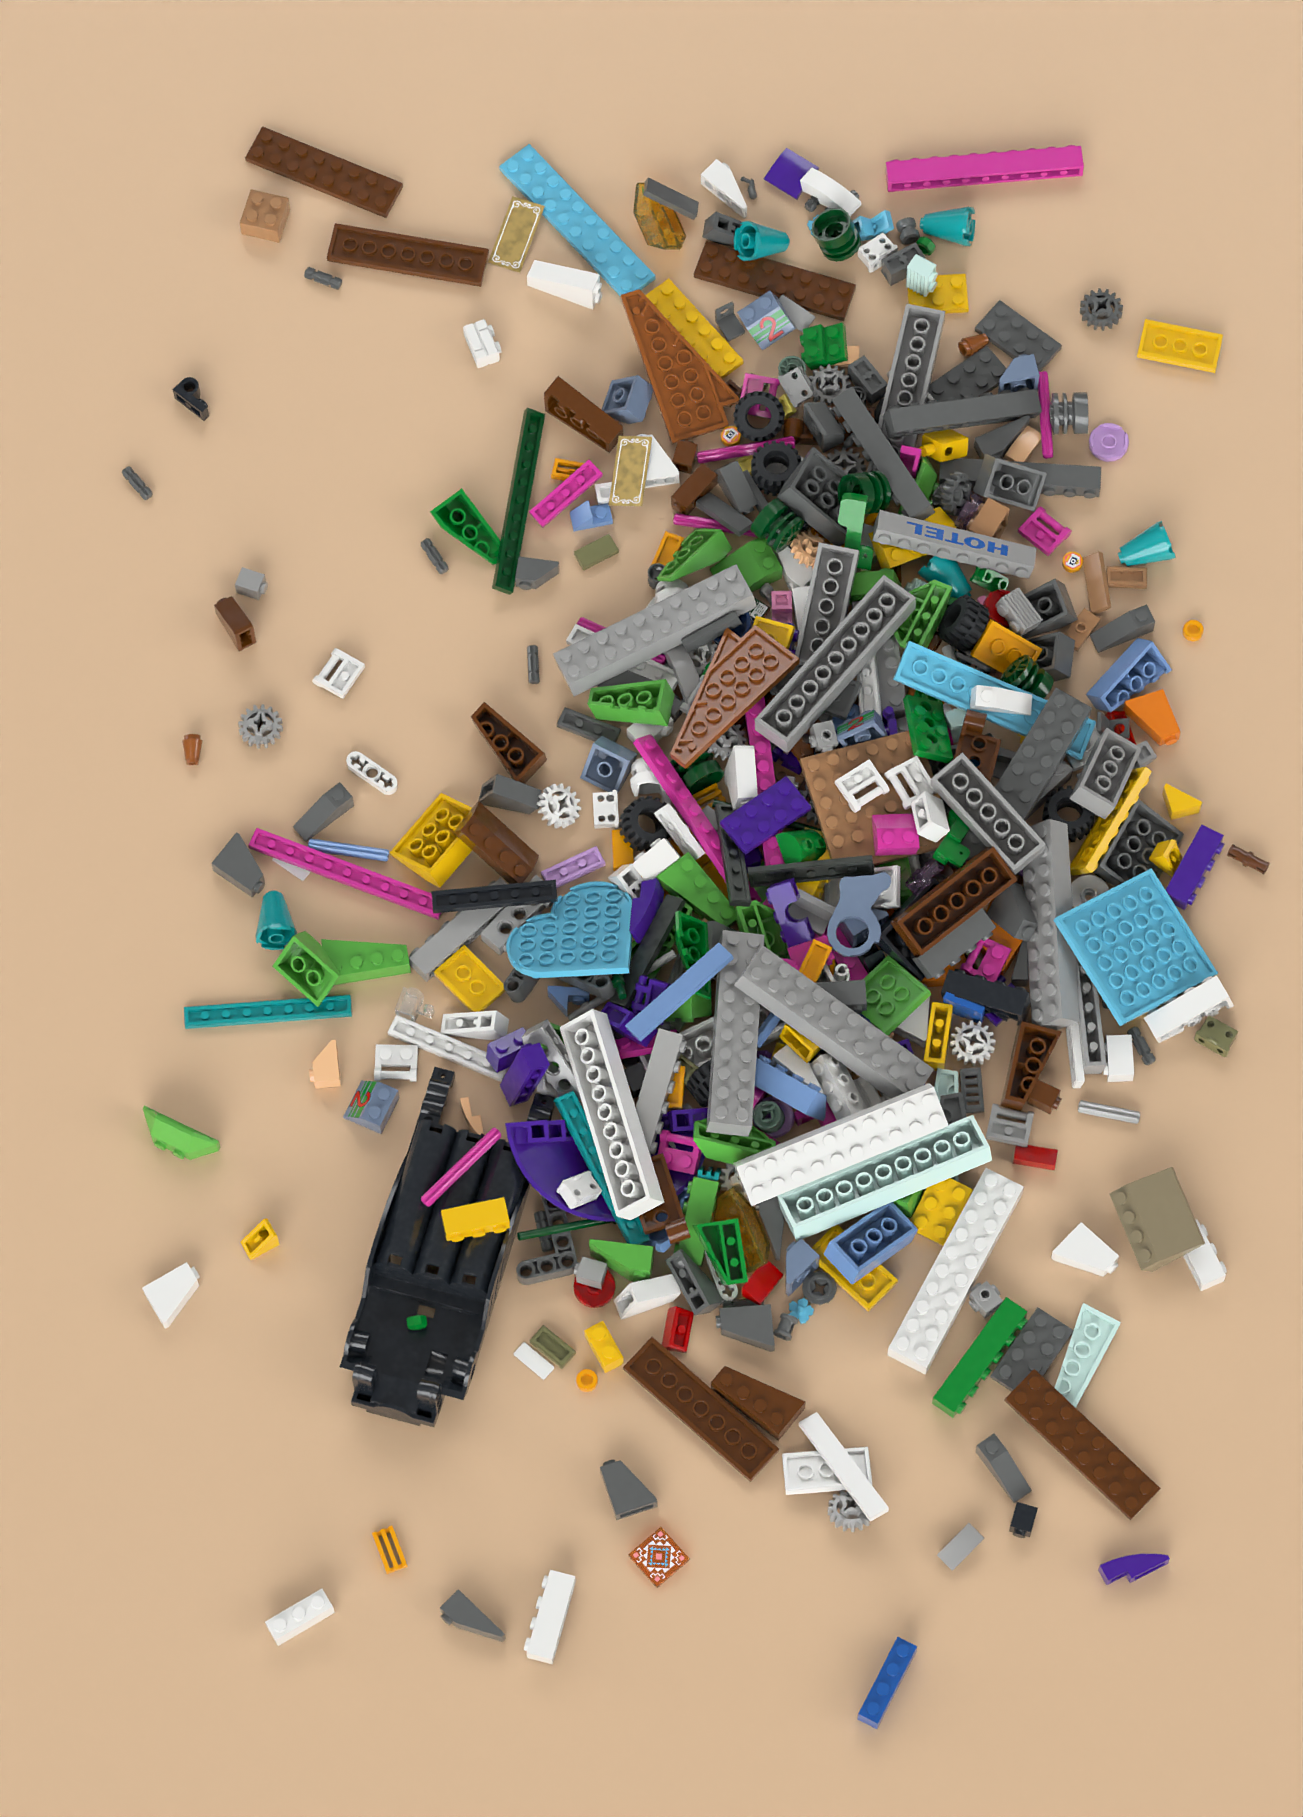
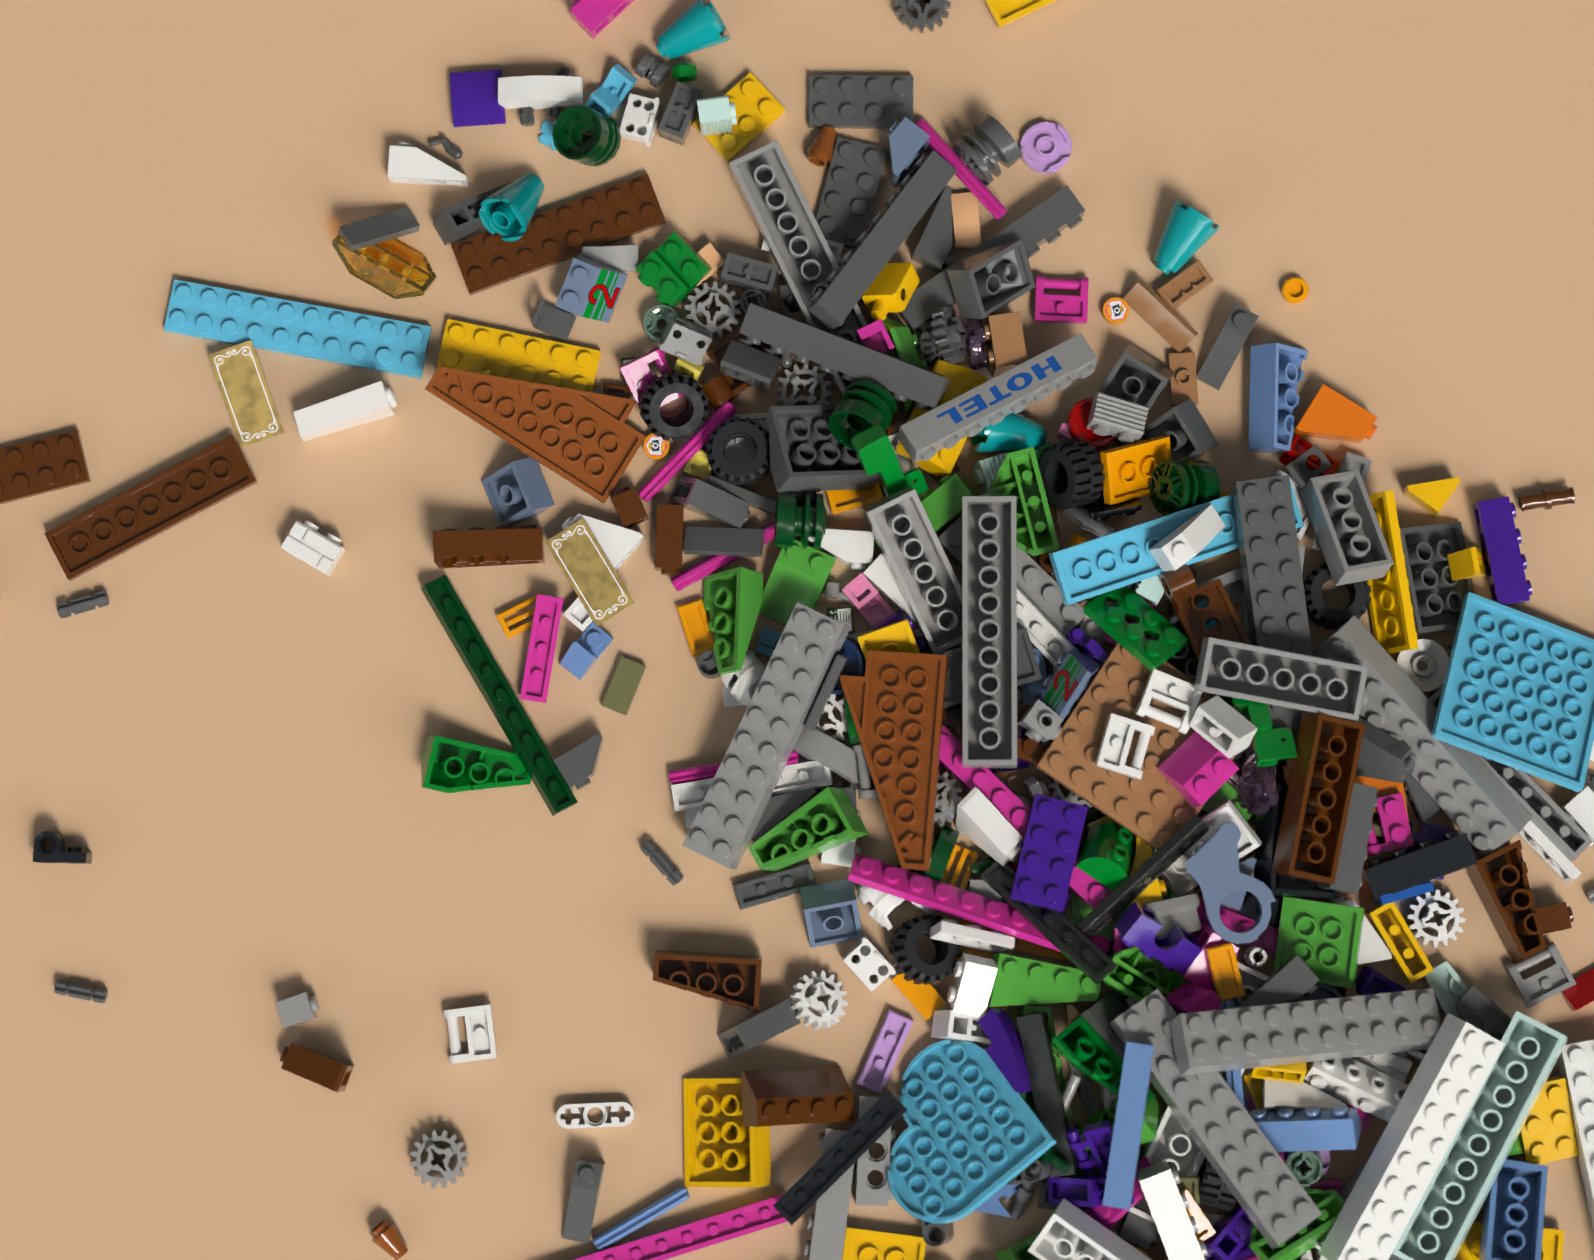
camera: 40 degrees left, 15 degrees up
(434, 556) = (460, 824): dark grey axle -> none
(806, 548) = (846, 515): light nougat gear -> none
(968, 1073) = (1464, 947): dark grey slope -> none
(989, 579) = (1056, 402): green hips -> none

